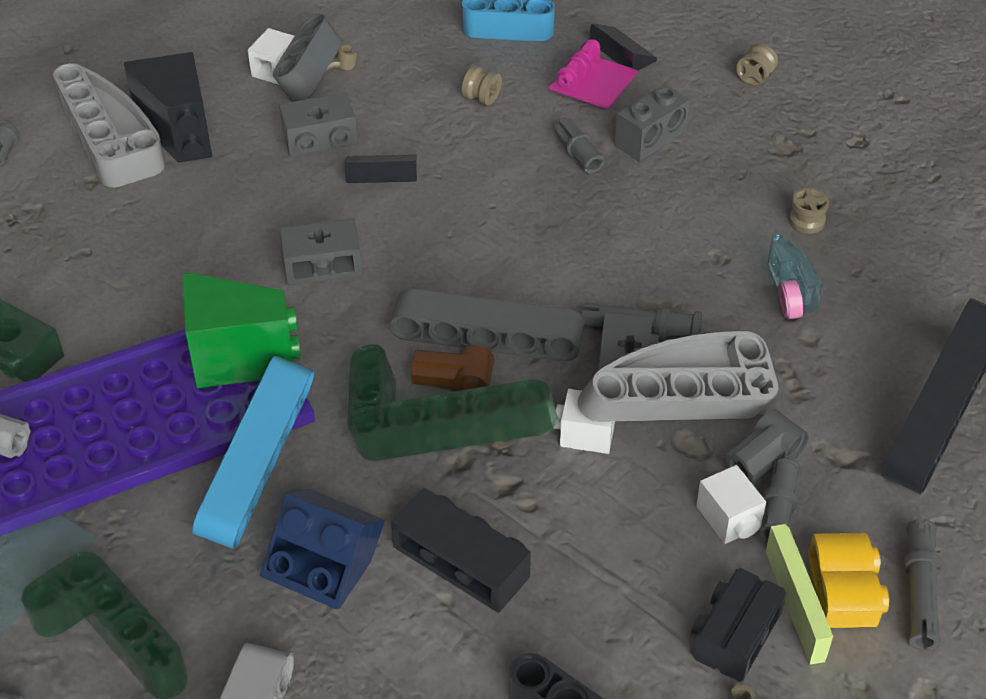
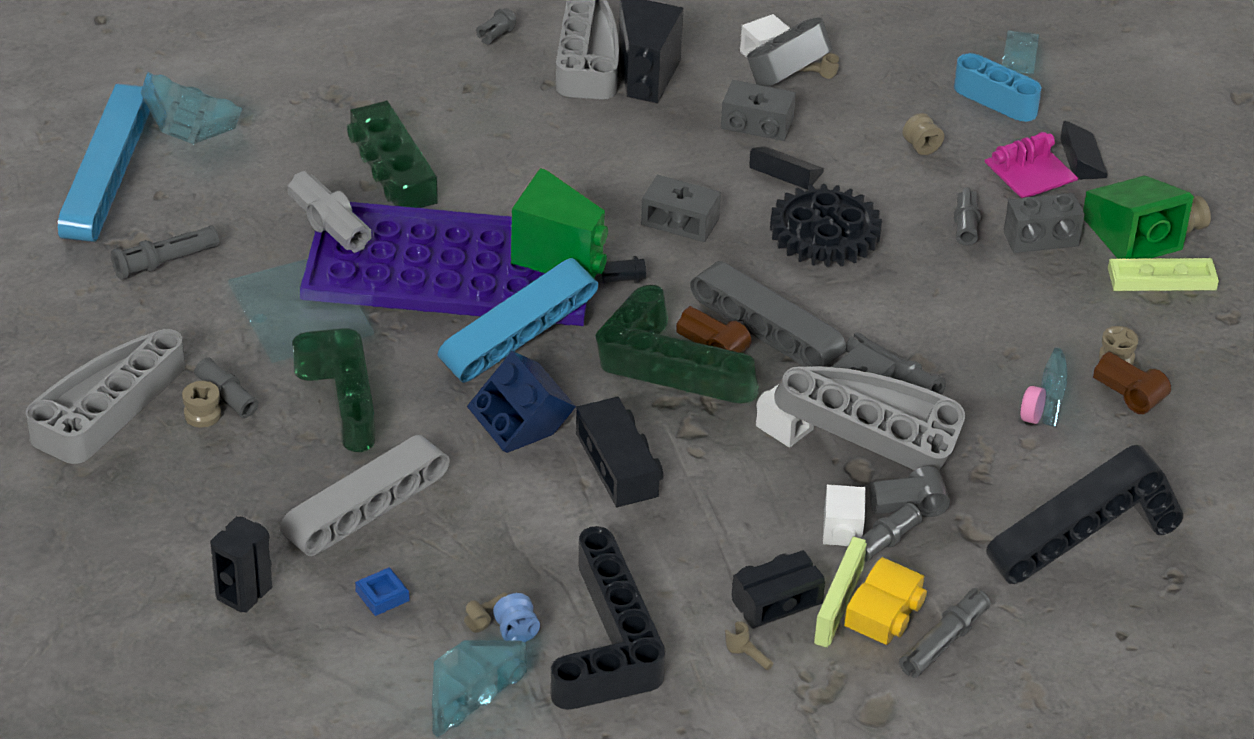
camera: 30 degrees right, 5 degrees down
(315, 340) = (624, 270): none -> black pin
(467, 209) = (825, 225): none -> black gear
(726, 81) = (1139, 217): none -> green slope
(777, 126) = (1163, 274): none -> yellowish green tile
(860, 238) = (1139, 388): none -> reddish brown piece

